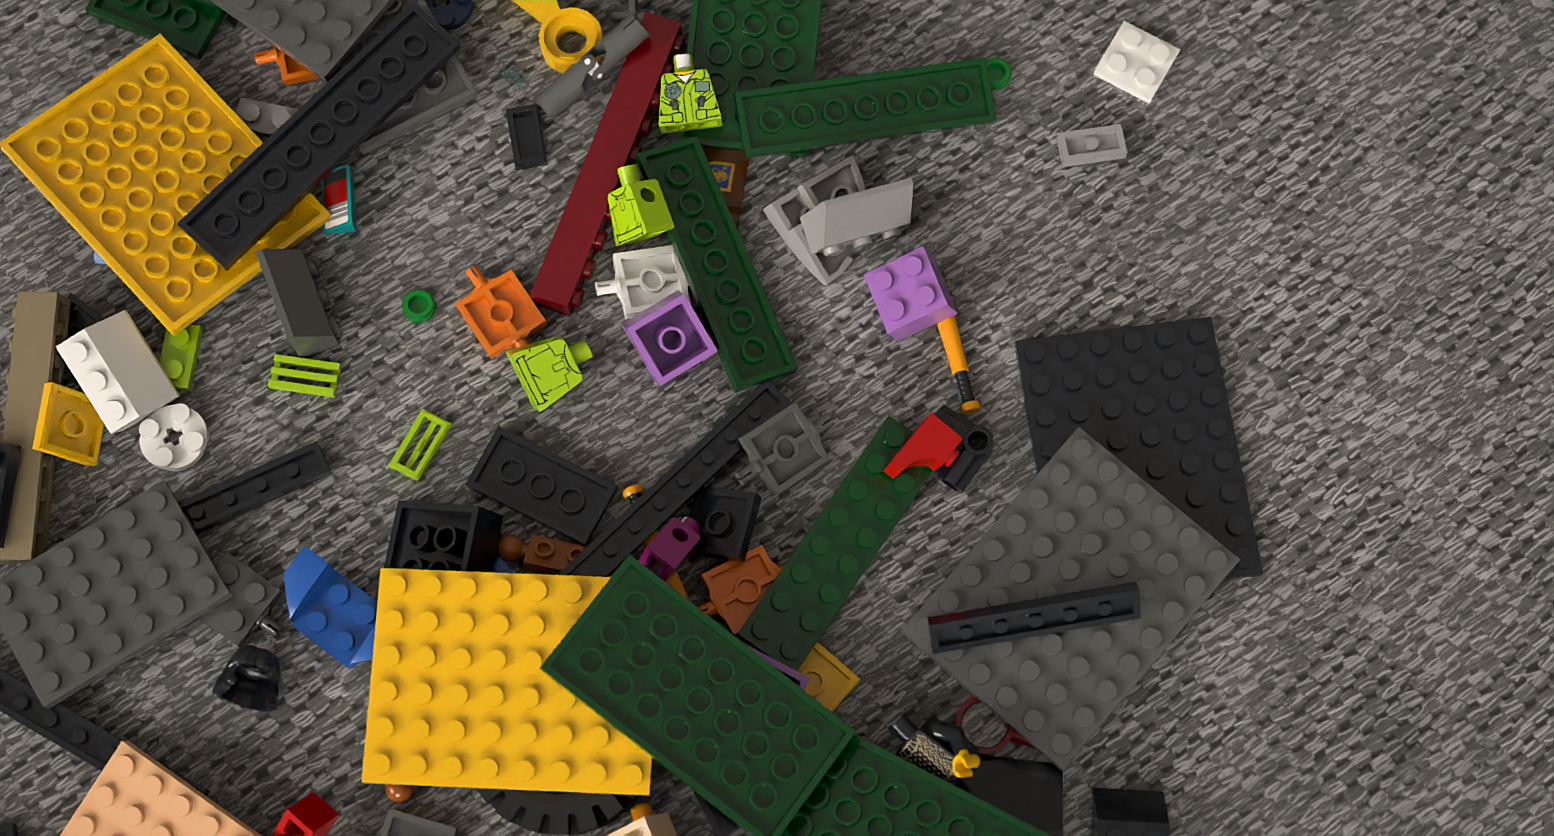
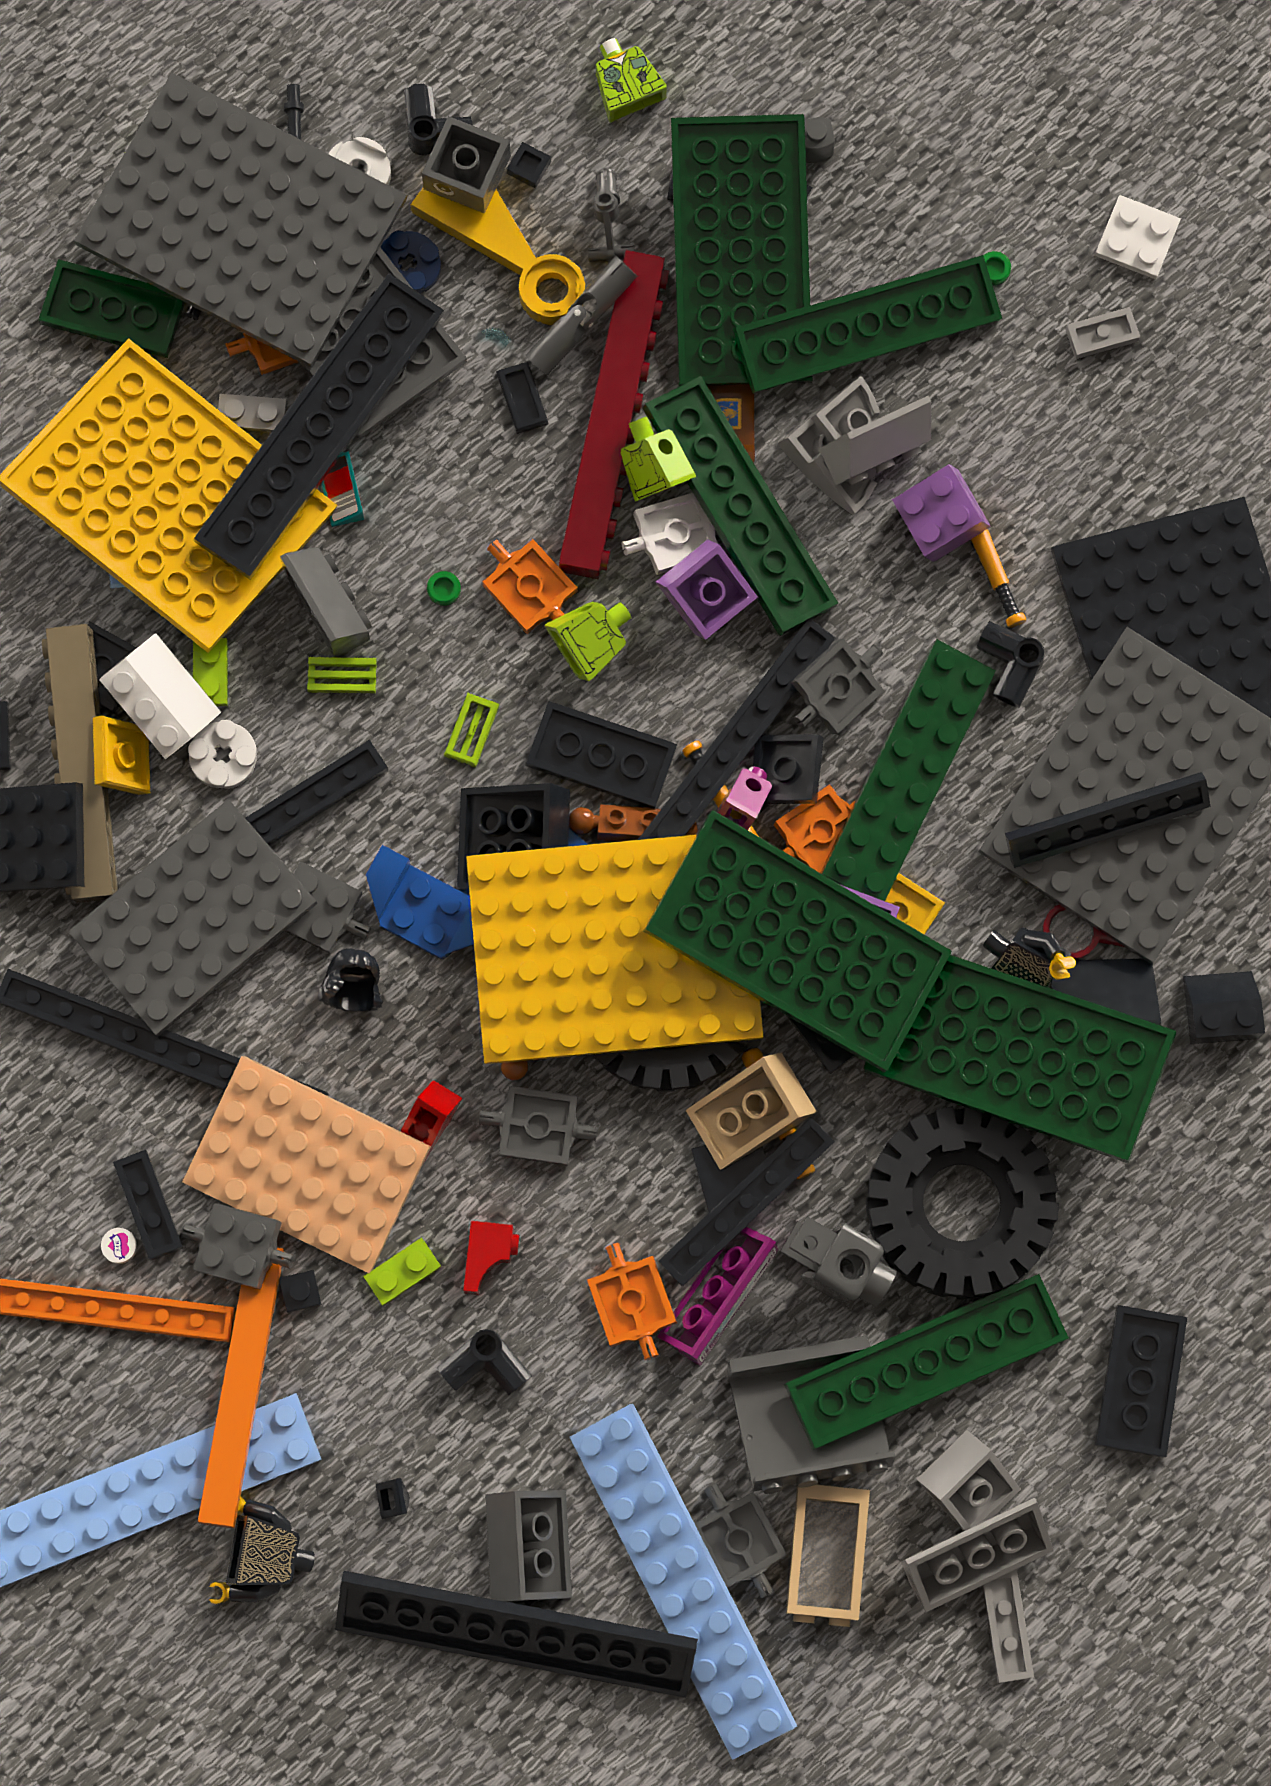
camera: 10 degrees left, 5 degrees up
(687, 98) = (686, 338): lime torso -> none
(928, 446) = (982, 664): red arch -> none

